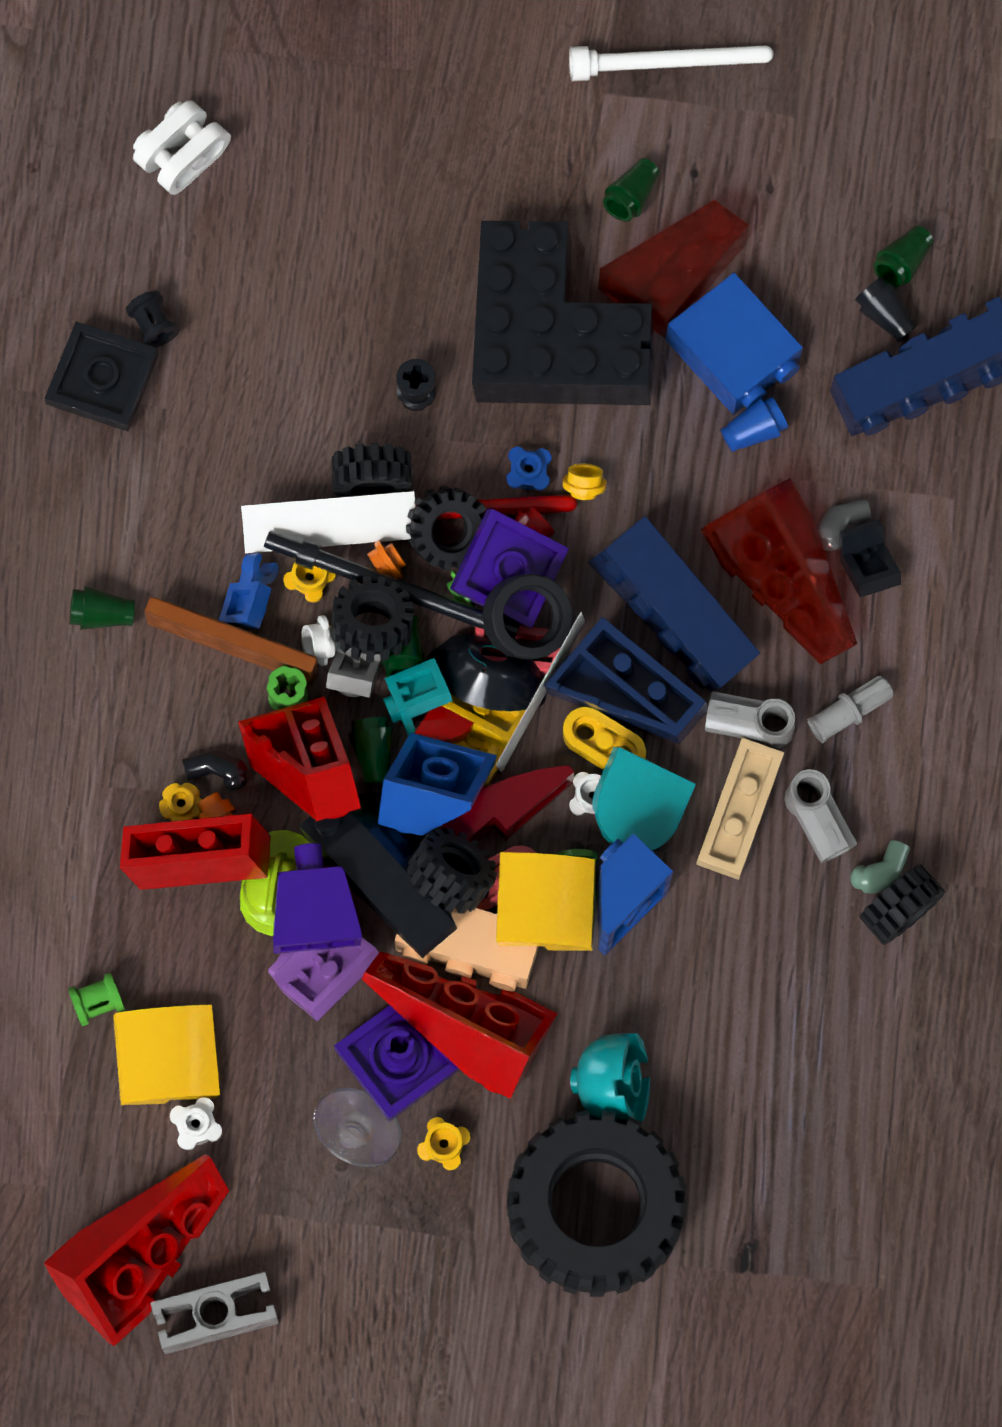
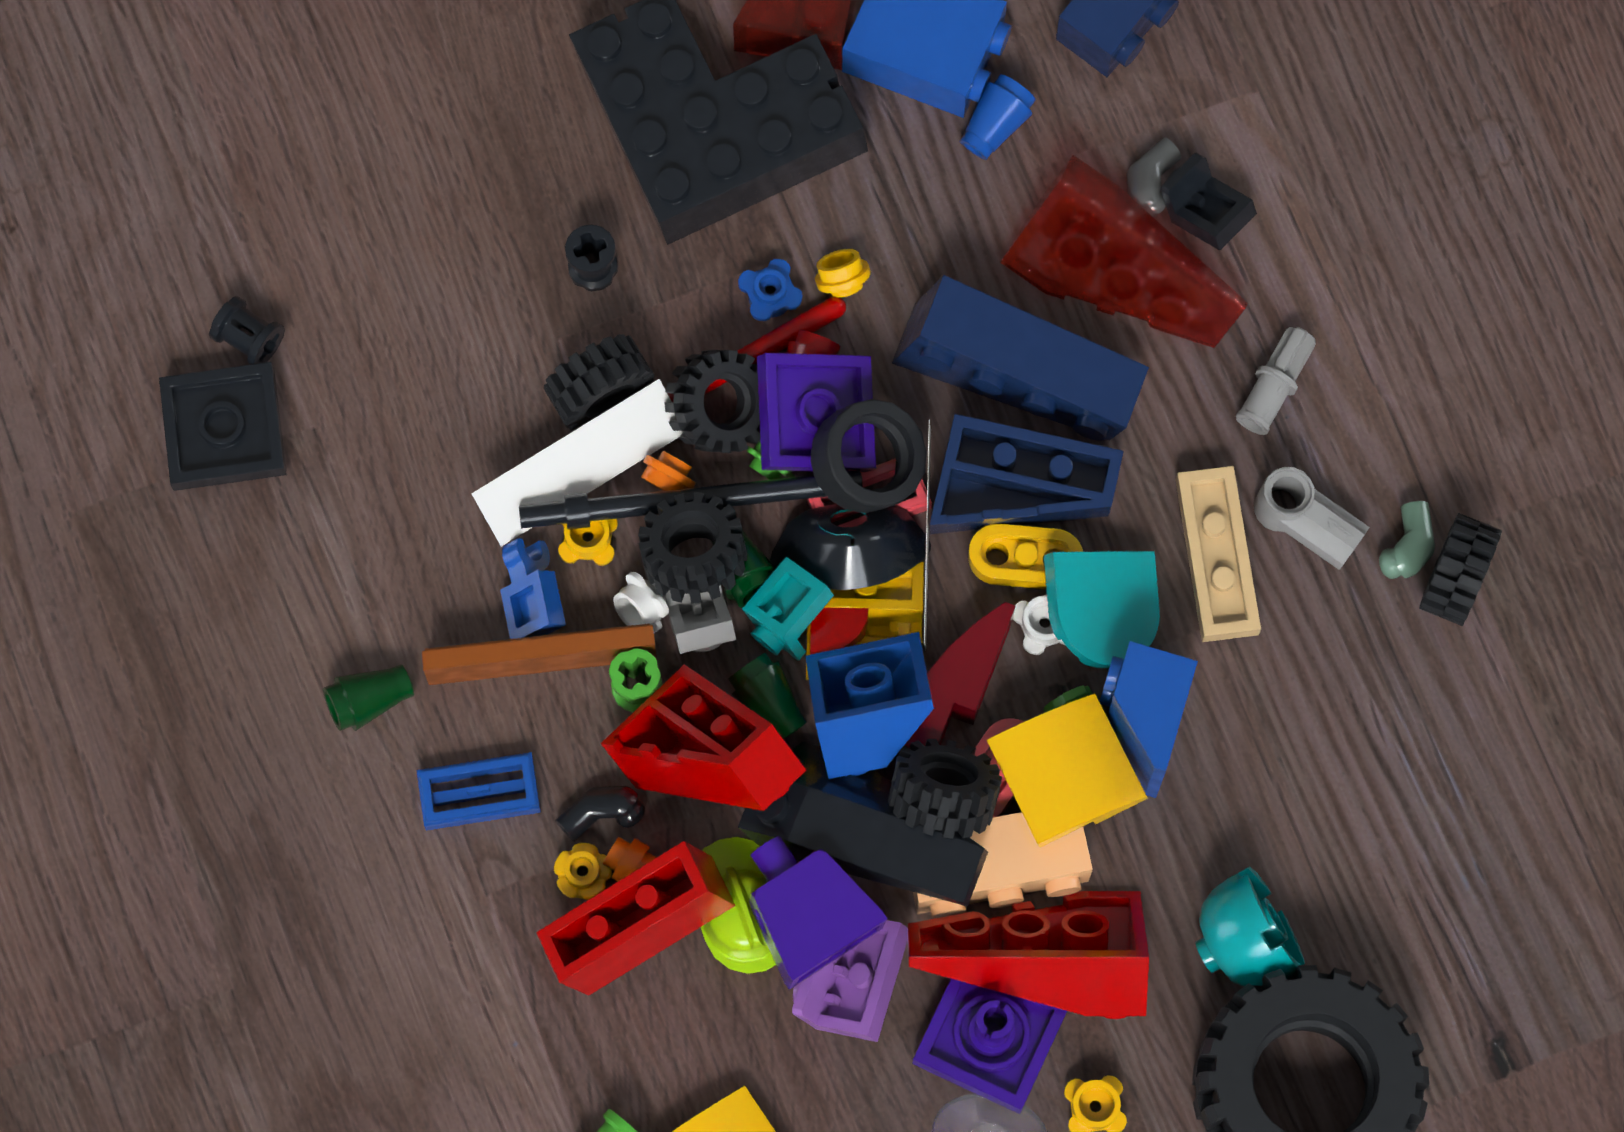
camera: 25 degrees left, 0 degrees up
(175, 725) = (480, 813): none -> blue tile
(180, 124) = (158, 93): white brick -> none
(744, 718) = (1168, 450): light grey piece -> none

